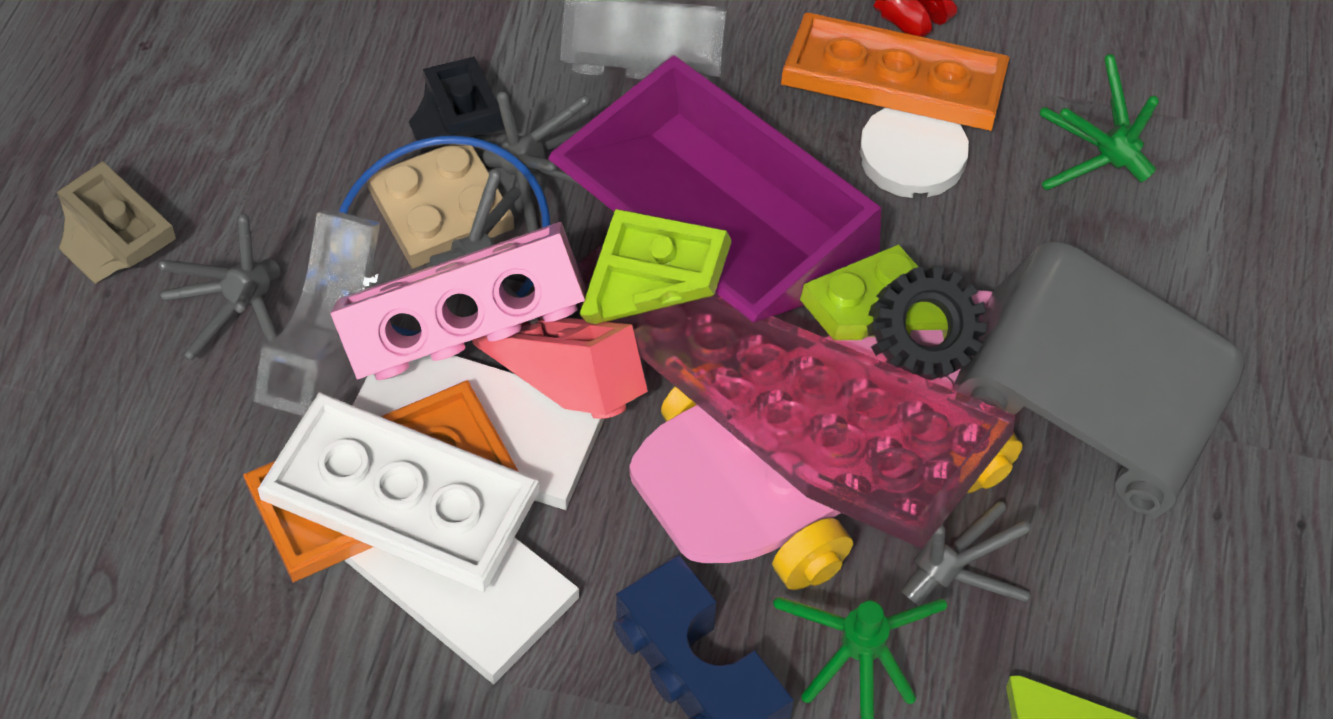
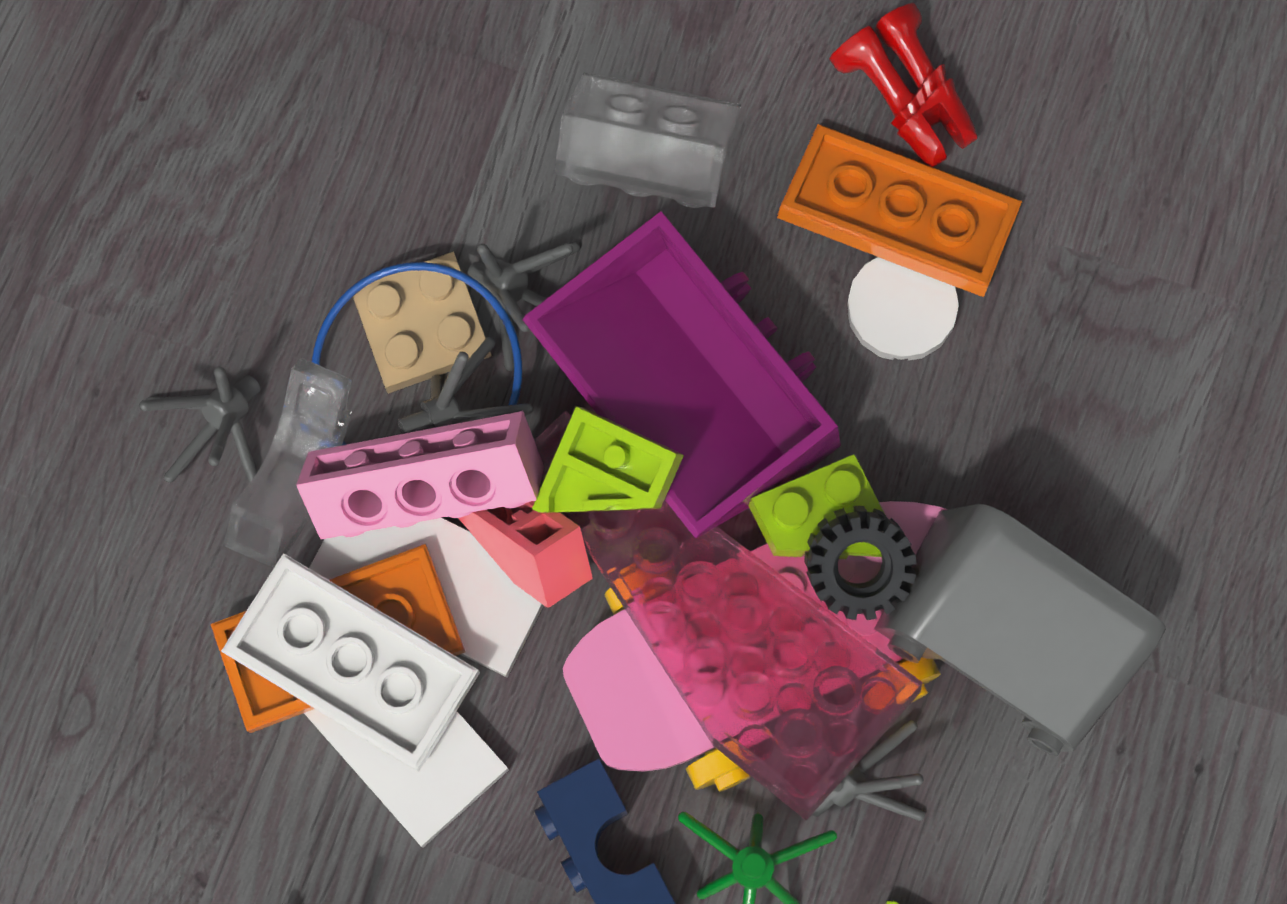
camera: 15 degrees right, 20 degrees up
(108, 224) = (98, 323): dark tan slope -> none
(456, 103) = (444, 215): black slope -> none
(1118, 146) = (1108, 328): green plant -> none

